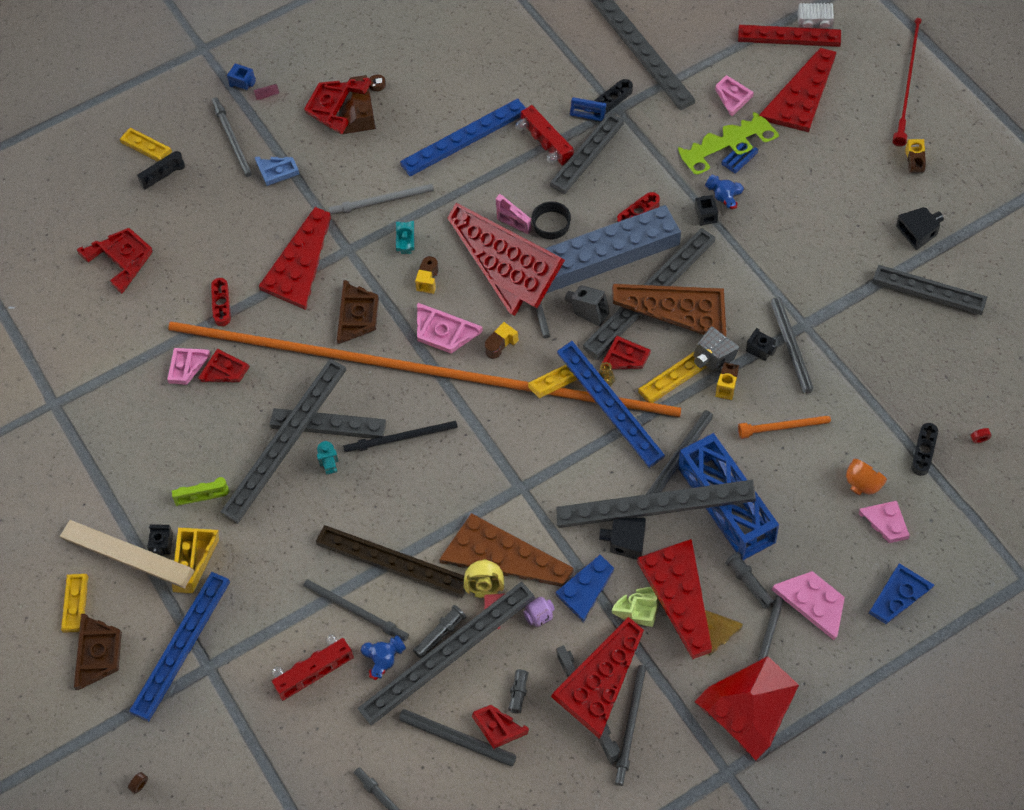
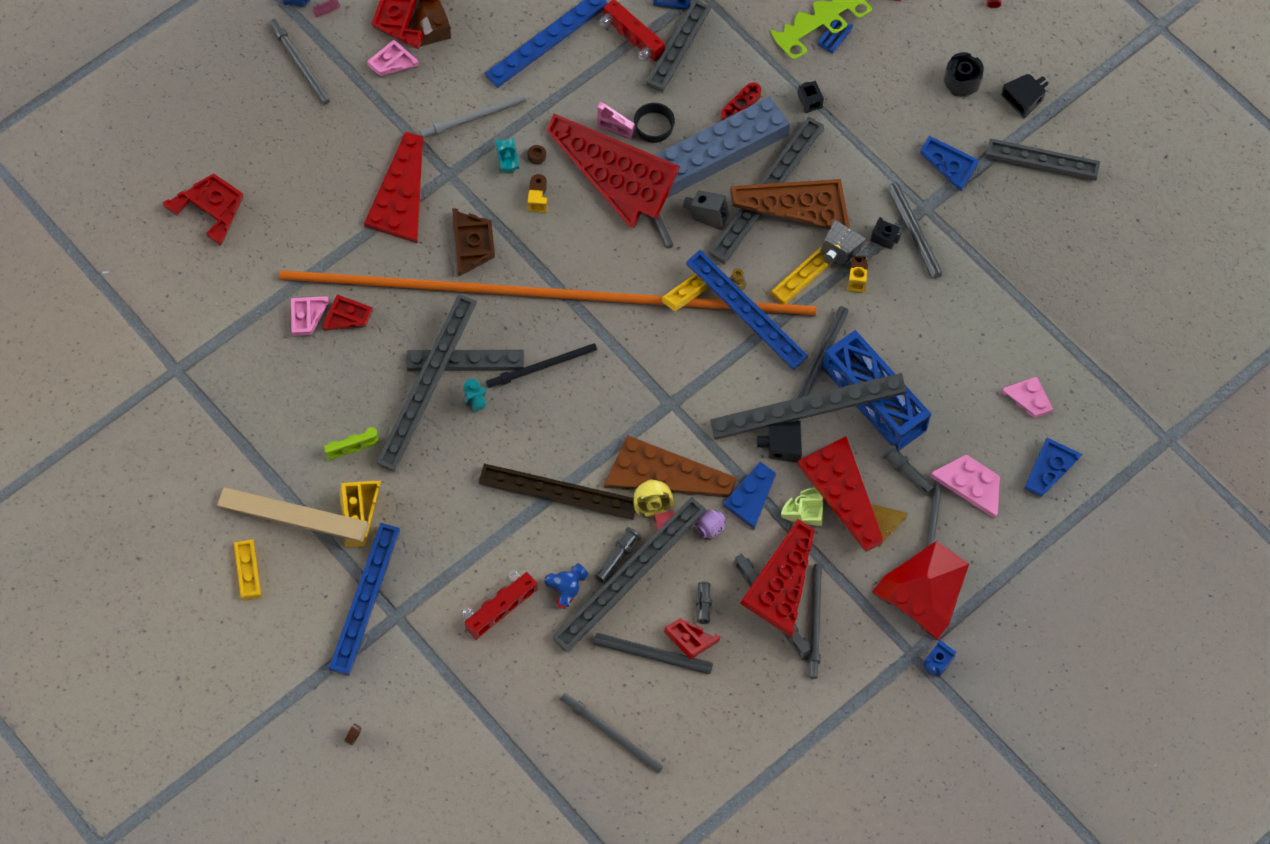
camera: 15 degrees left, 5 degrees up
(97, 652) = (282, 614): reddish brown wing -> none
(145, 145) = (208, 79): yellow tile -> none
(161, 169) = (233, 106): black plate -> none
(164, 535) = (321, 489): black brick -> none
(224, 307) = (324, 250): red beam -> none
(276, 169) = (356, 93): medium blue wing -> none
(316, 142) = (392, 59): none -> bright pink wing
(388, 627) = (567, 556): dark grey bar -> none
(434, 239) = (536, 154): none -> reddish brown tile
(443, 329) = (564, 250): bright pink wing -> none
(499, 340) = (624, 254): leg -> none
(626, 355) = (753, 257): red wing -> none
(724, 190) = (825, 74): blue animal -> none
(746, 430) = (883, 322): orange piece -> none
(751, 789) = (937, 666): none -> blue brick
(835, 283) = (949, 161): none -> blue wing
(860, 202) = (963, 74): none -> black brick
(864, 478) = (1003, 358): orange cylinder -> none
(916, 156) = (1012, 18): reddish brown leg -> none
(918, 455) = (1053, 314): black beam -> none
(981, 435) = (1109, 303): red tile -> none

